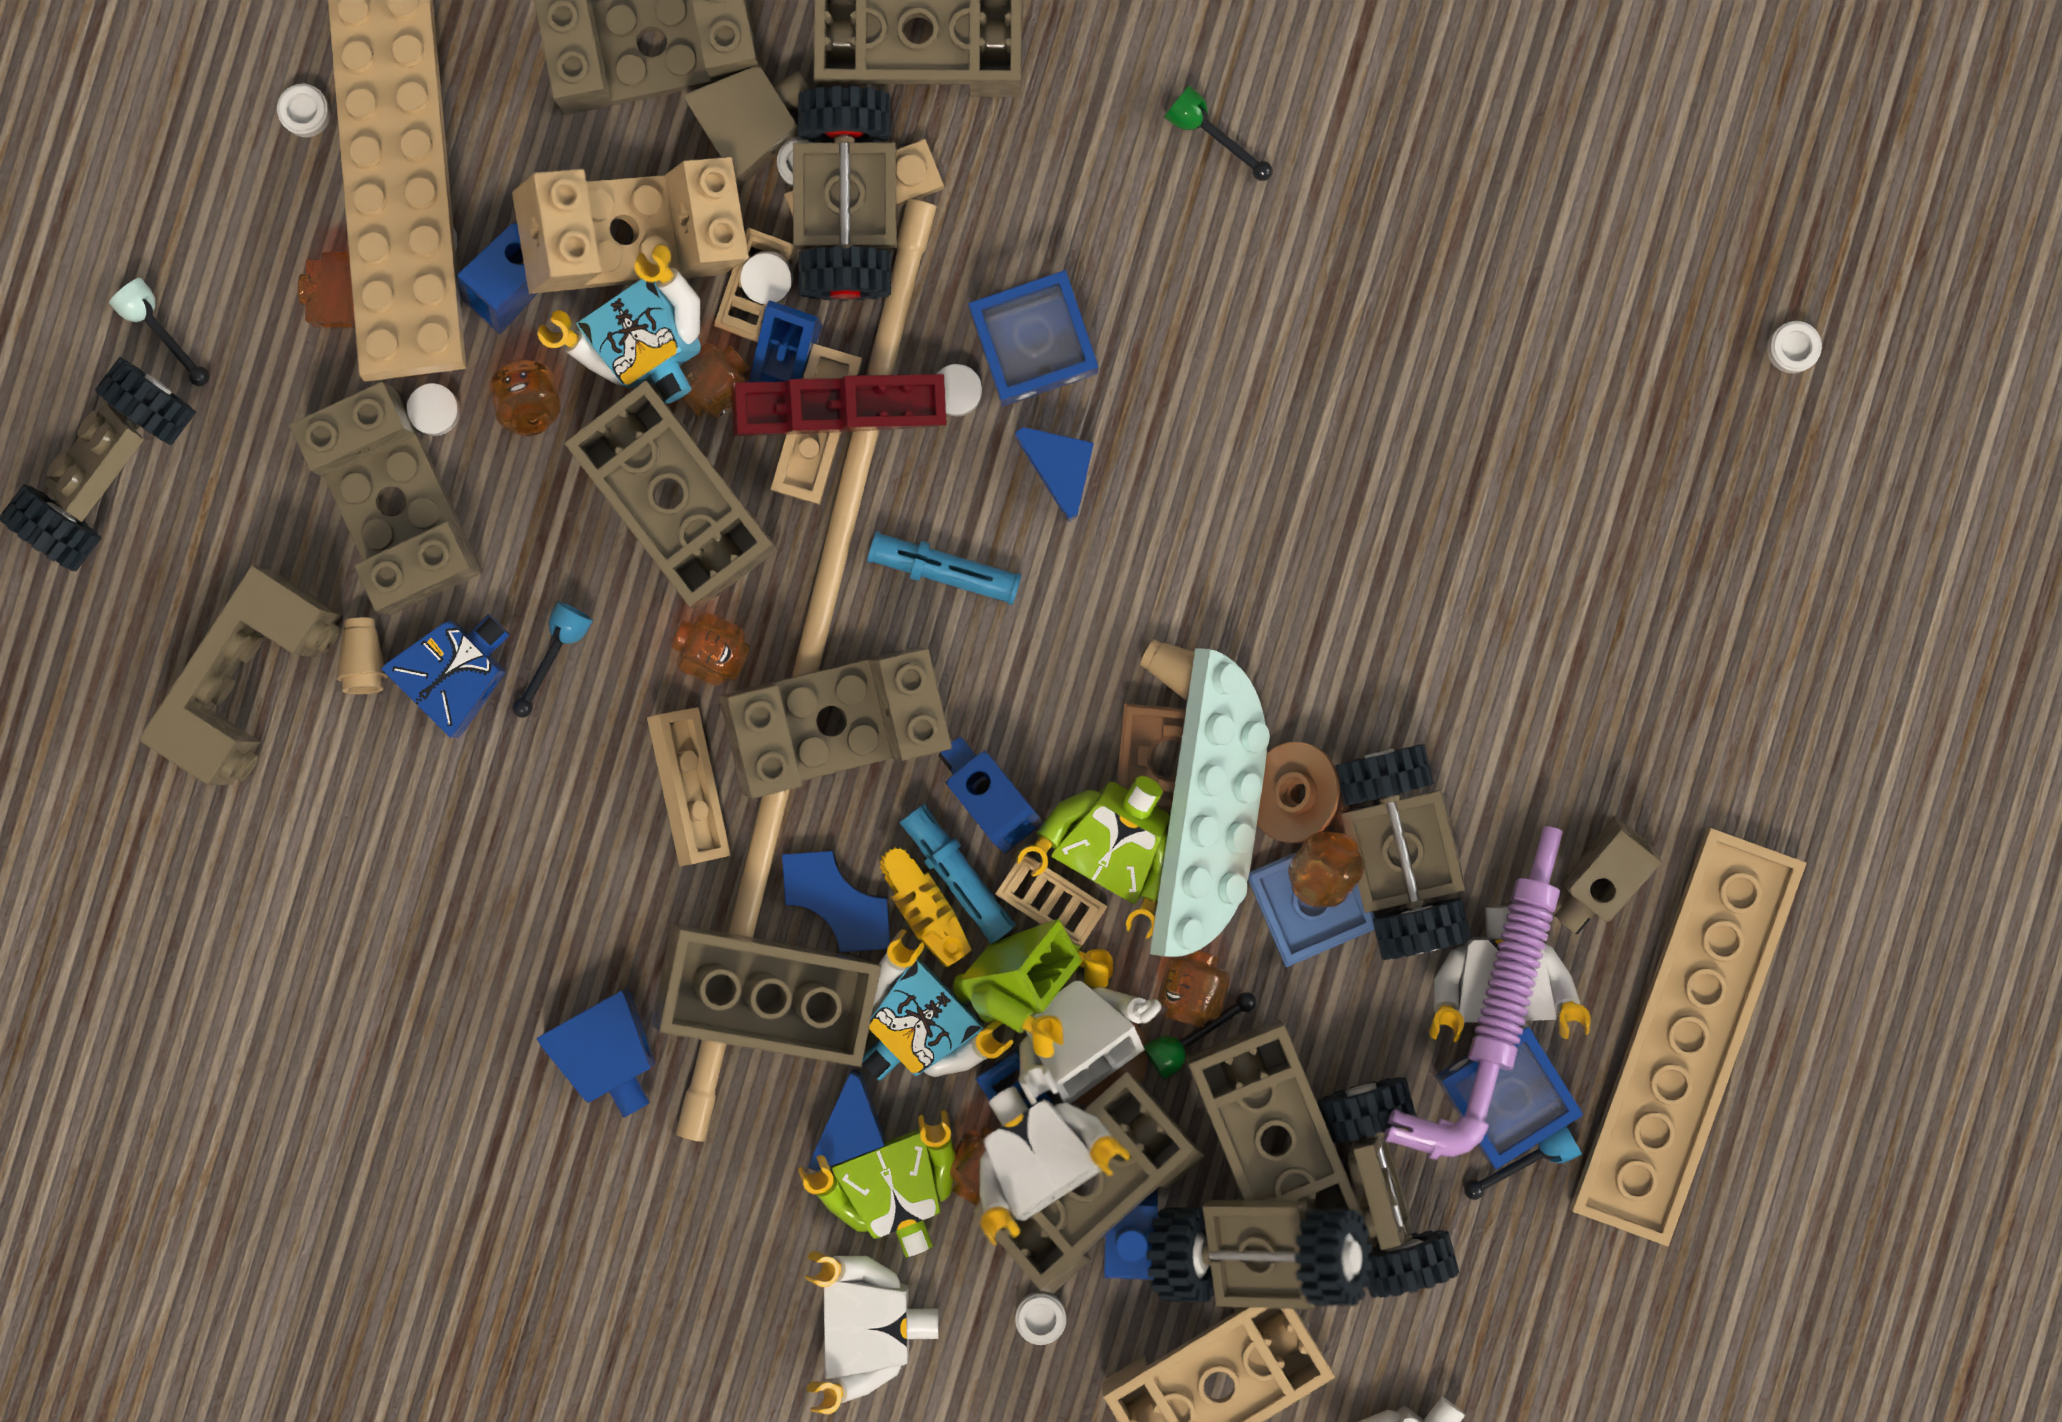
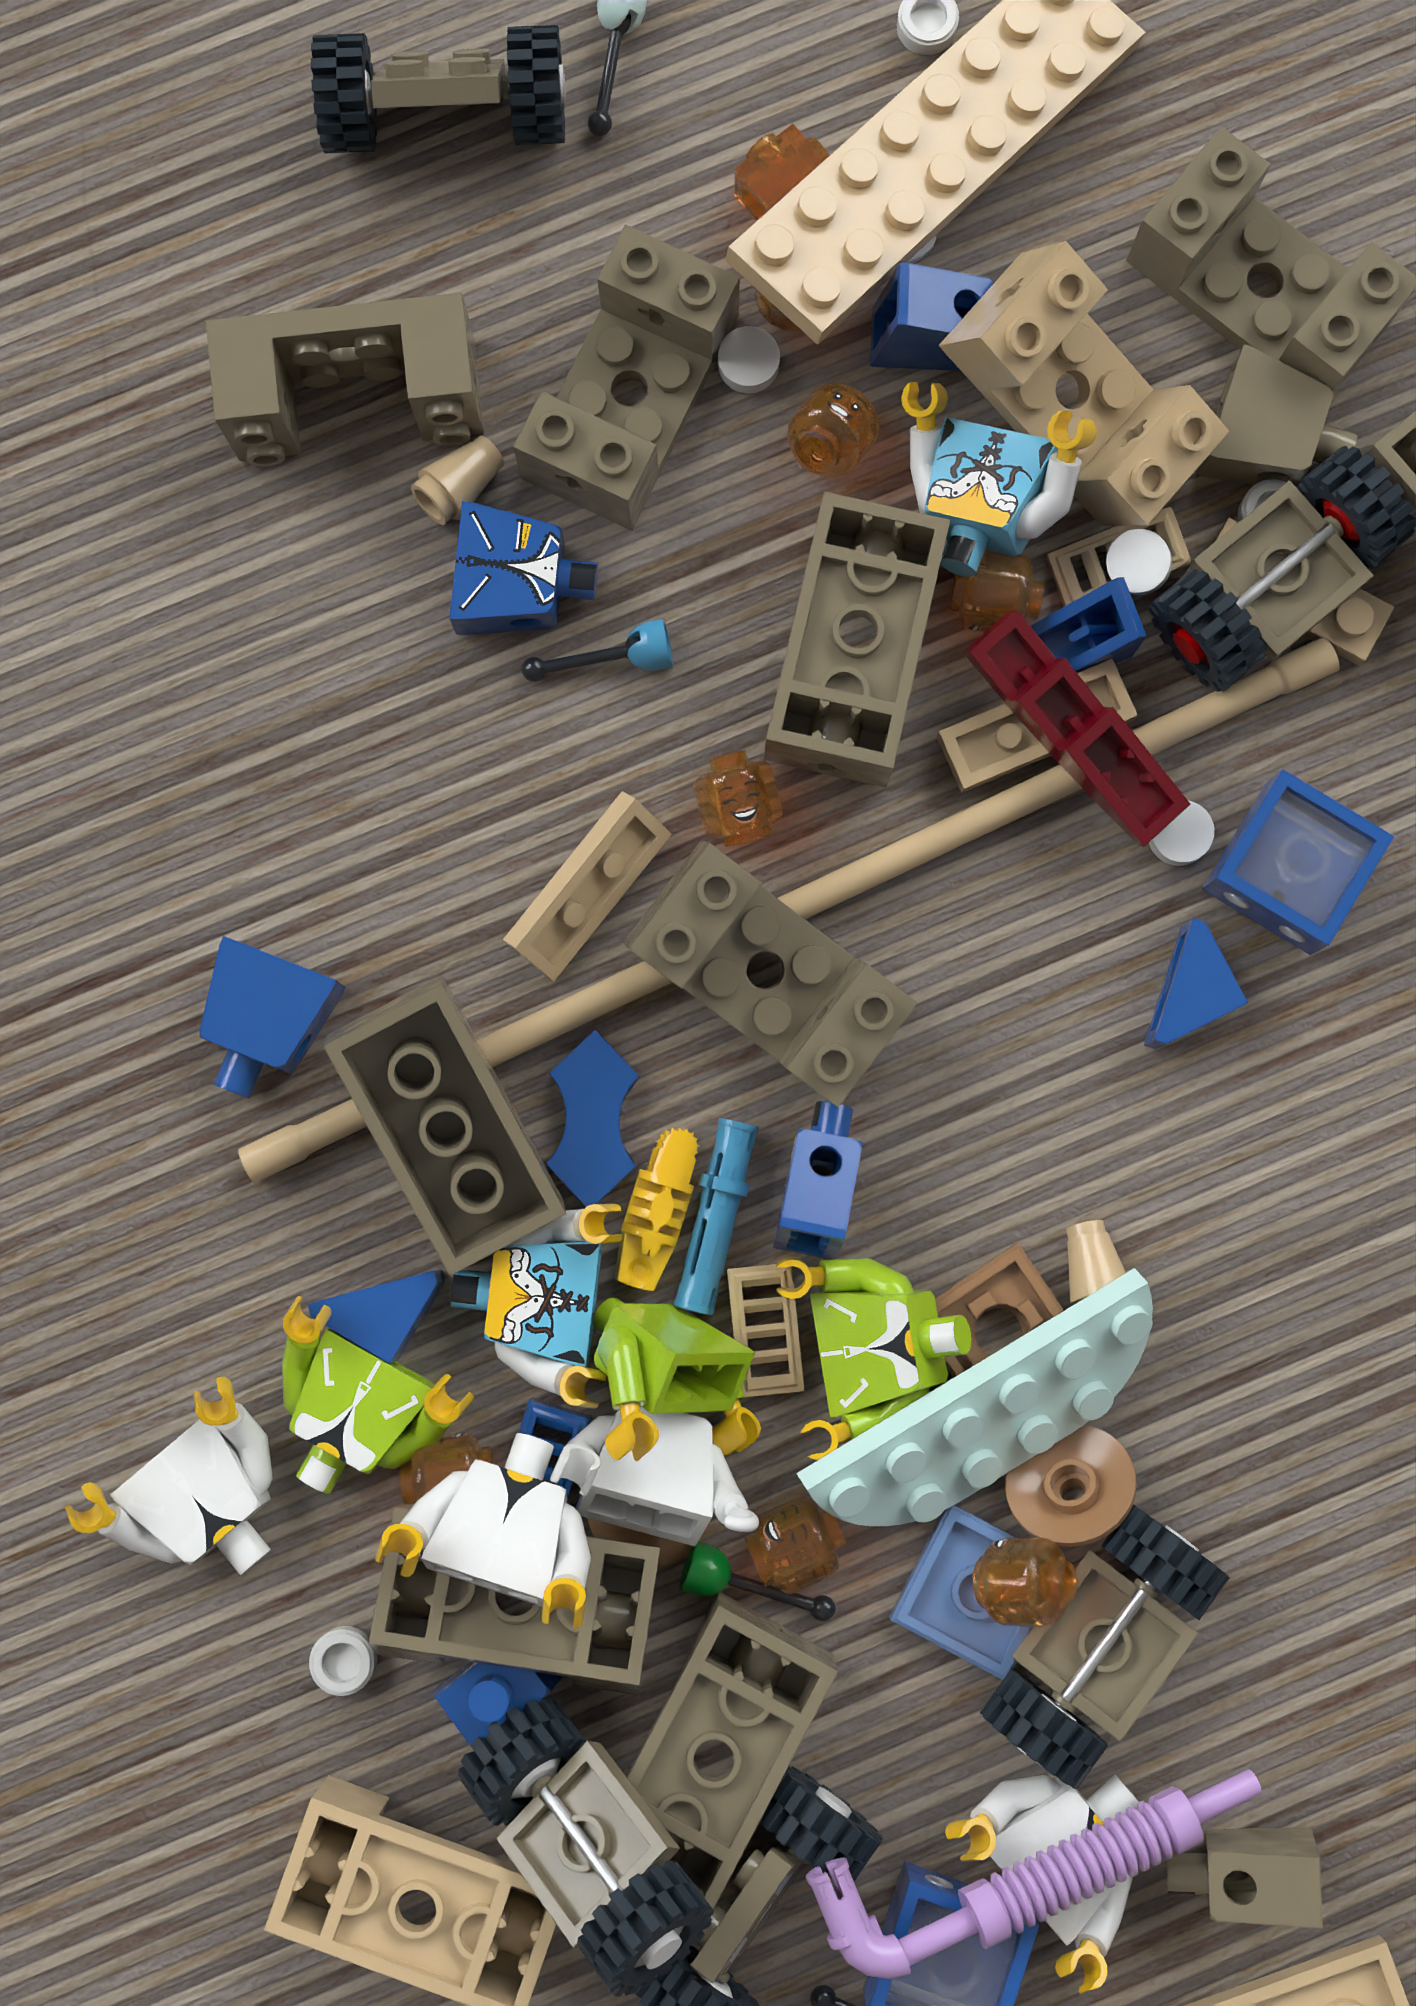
camera: 50 degrees right, 5 degrees down
(943, 567) = (1001, 959): dark azure pin -> none

